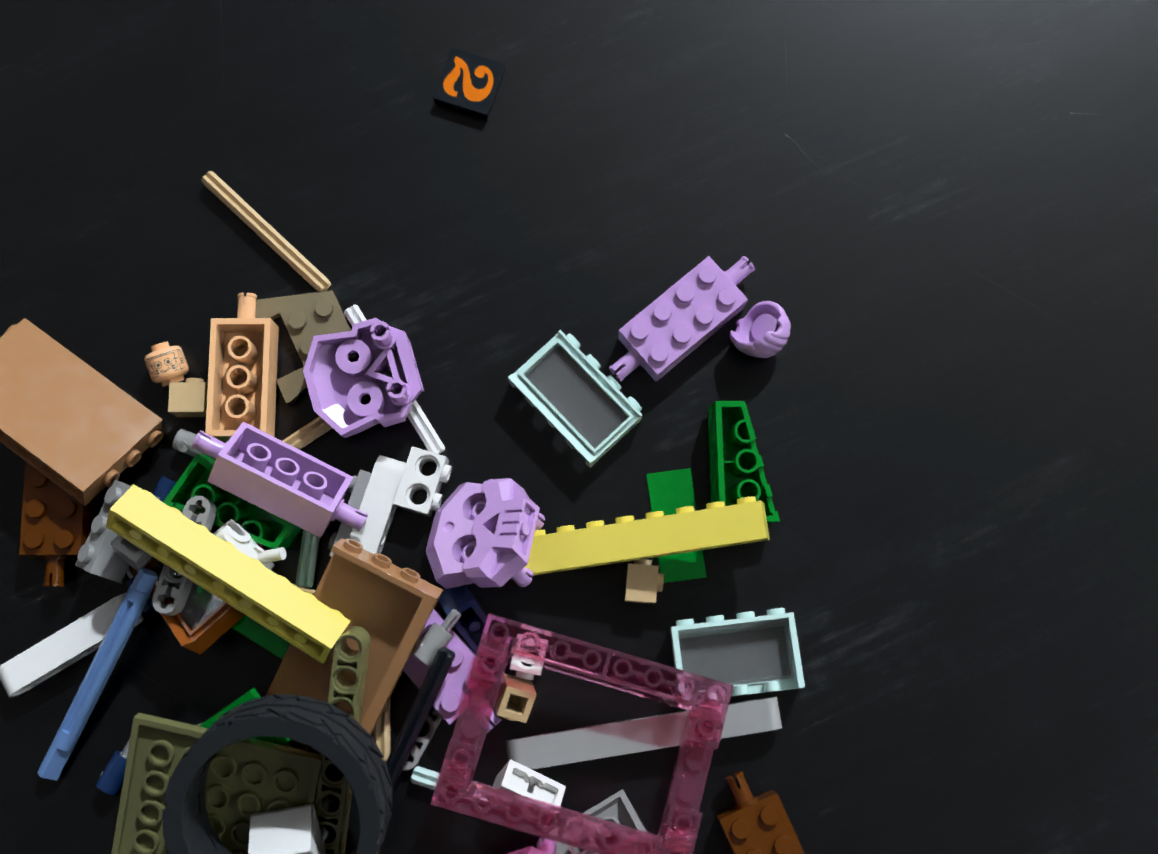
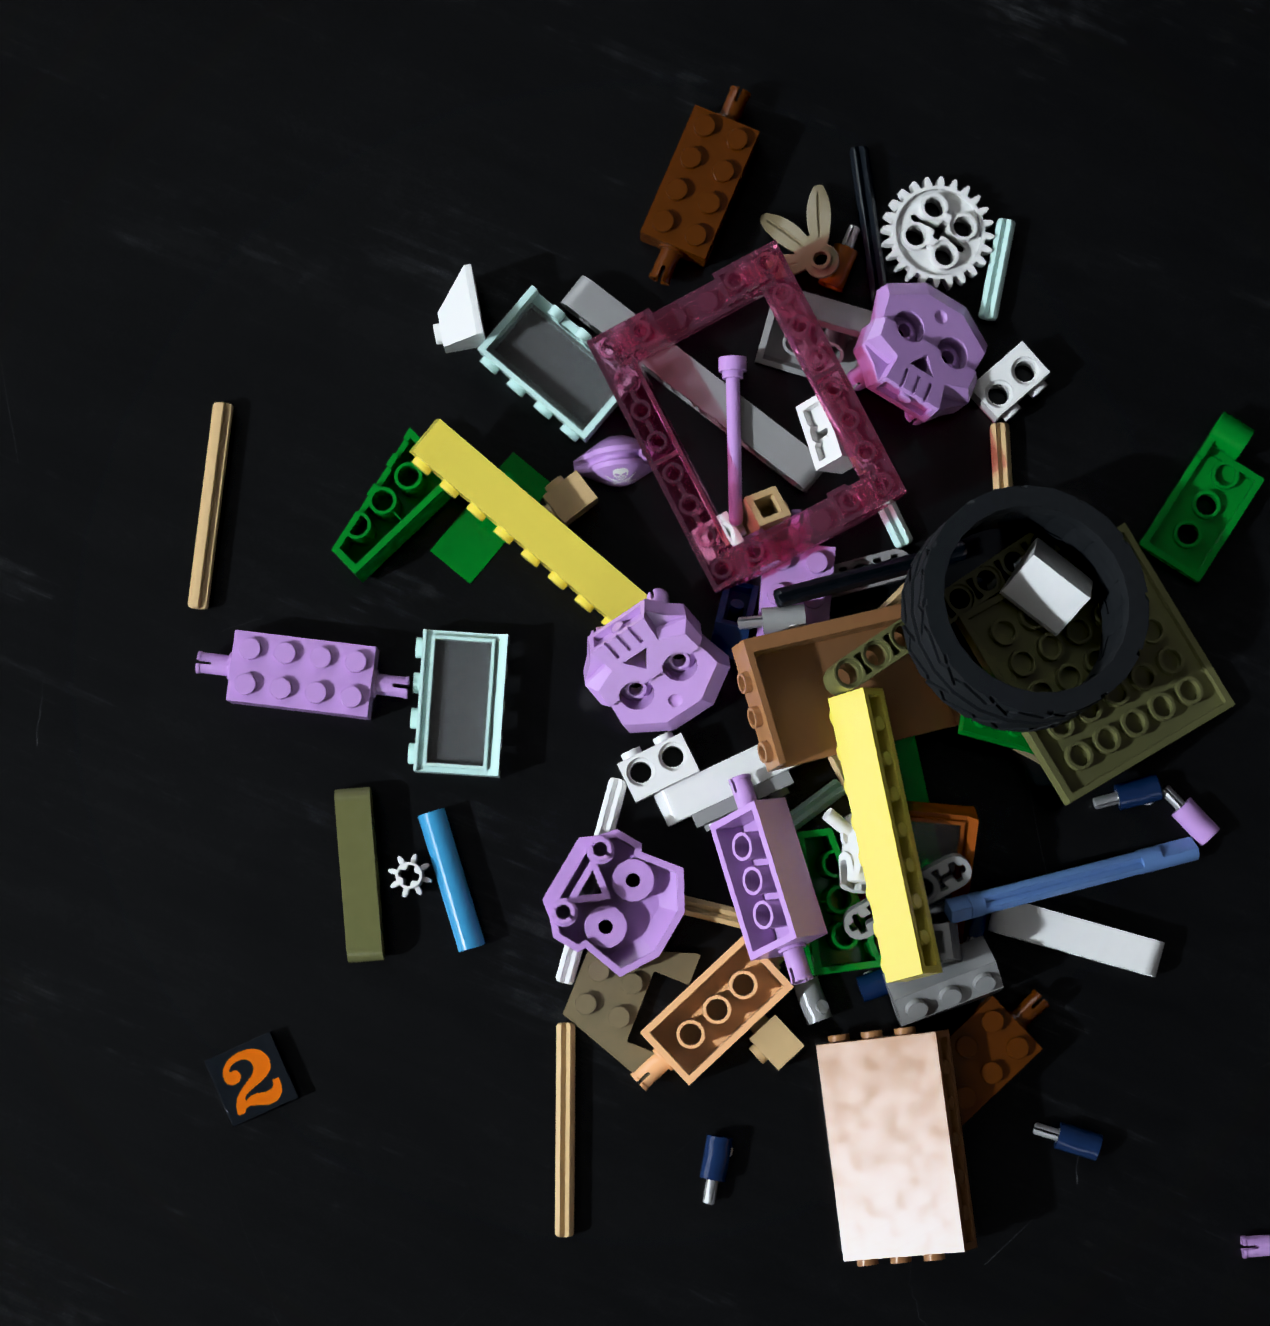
camera: 130 degrees left, 5 degrees up
(66, 792) = (1191, 817): none -> lavender piece
(159, 299) = (715, 1164): none -> dark blue piece
(166, 364) = (765, 1094): light nougat head -> none
(474, 297) = (451, 880): none -> dark azure piece
(502, 266) = (405, 866): none -> white gear
(529, 246) = (359, 874): none -> olive beam
(627, 767) = (732, 371): none -> lavender piece
(641, 633) = (614, 462): none -> lavender hat
(762, 330) = (250, 595): lavender piece -> none
(826, 624) = (460, 315): none -> white slope
(842, 359) = (210, 505): none -> tan axle

